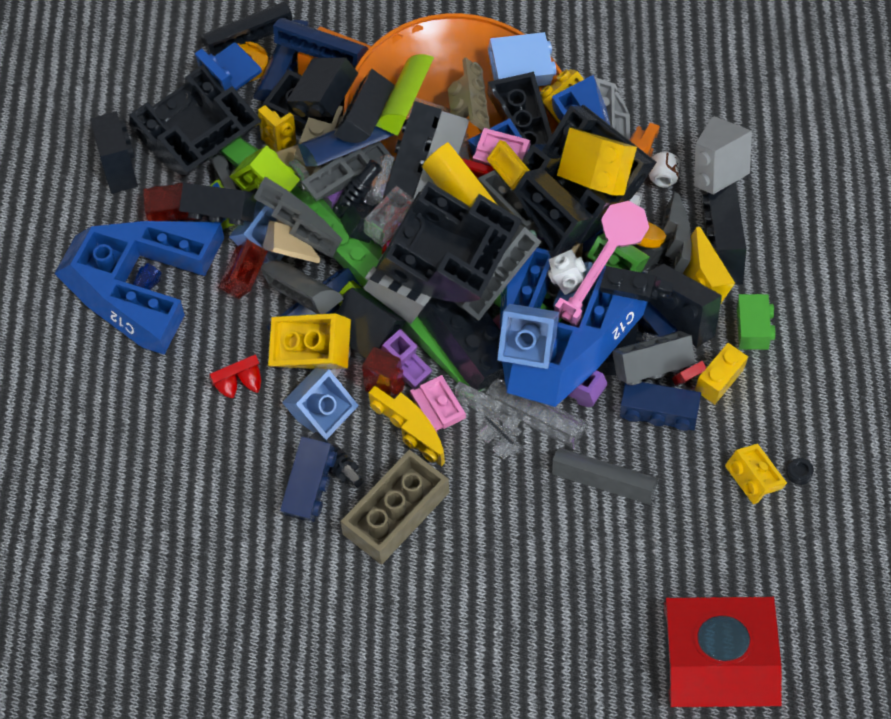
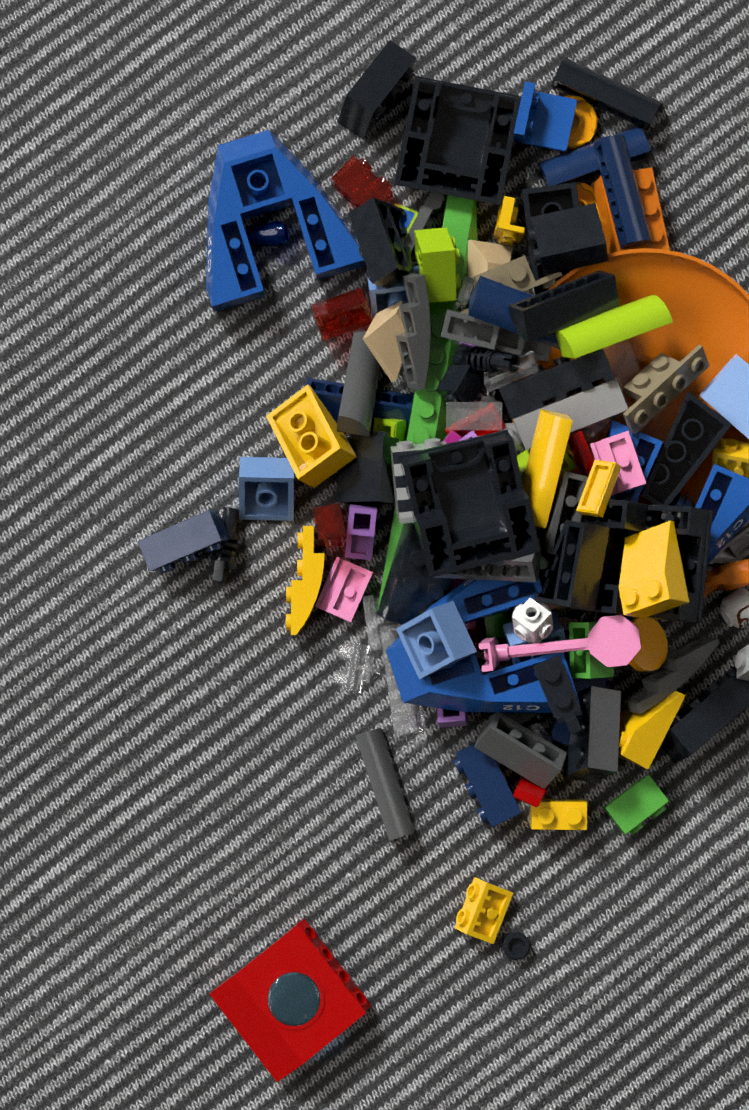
camera: 45 degrees right, 25 degrees up
(246, 370) = (250, 396): red tile -> none
(395, 507) = (215, 633): dark tan brick -> none

